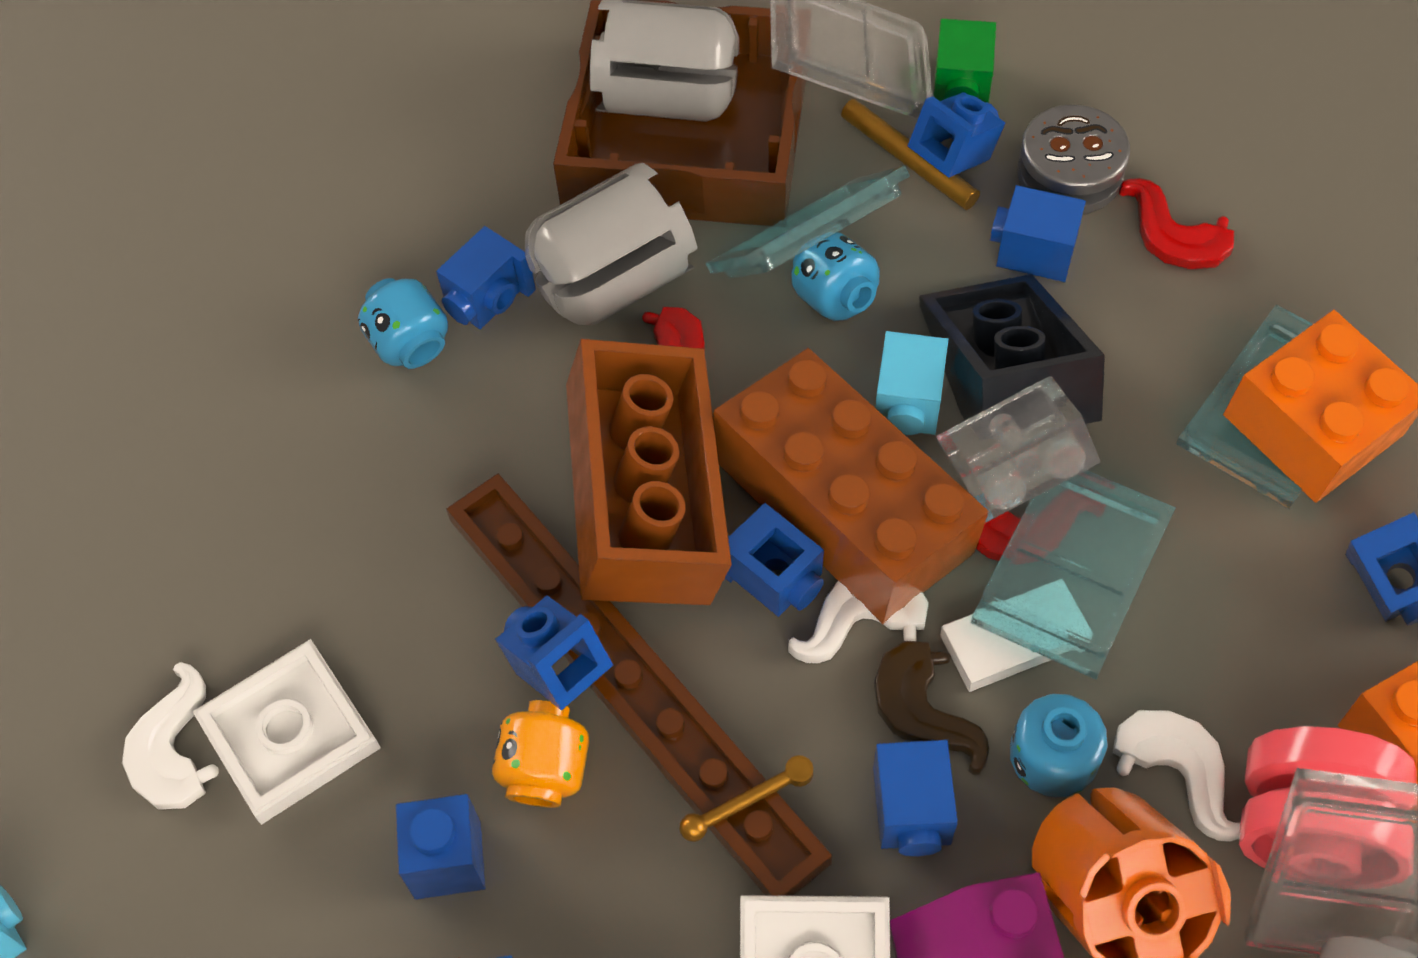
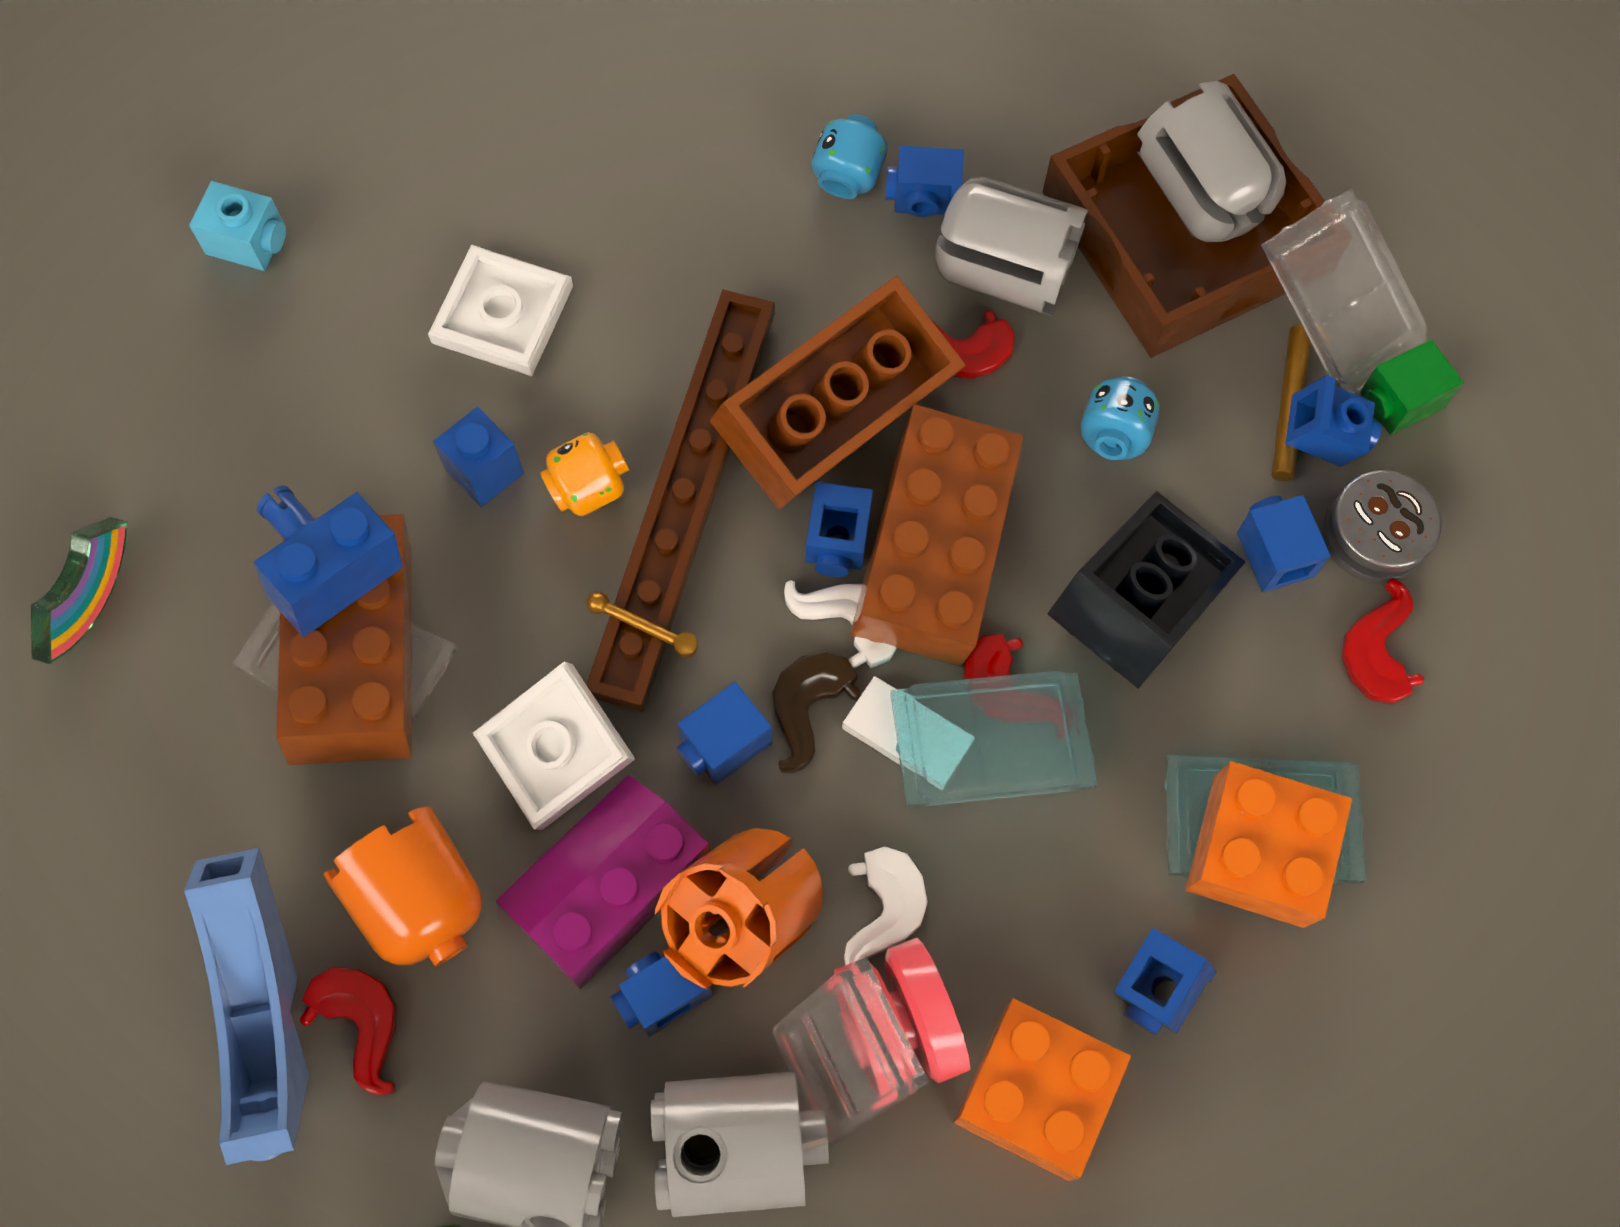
camera: 50 degrees right, 10 degrees up
(149, 753) = (427, 244): white piece -> none
(540, 637) = (652, 411): blue brick -> none
(810, 224) = (1144, 369): clear light blue piece -> none
(911, 381) = (1058, 529): medium azure brick -> none
(1019, 447) = (1050, 637): clear brick -> none
(1058, 745) = (828, 825): dark azure head -> none

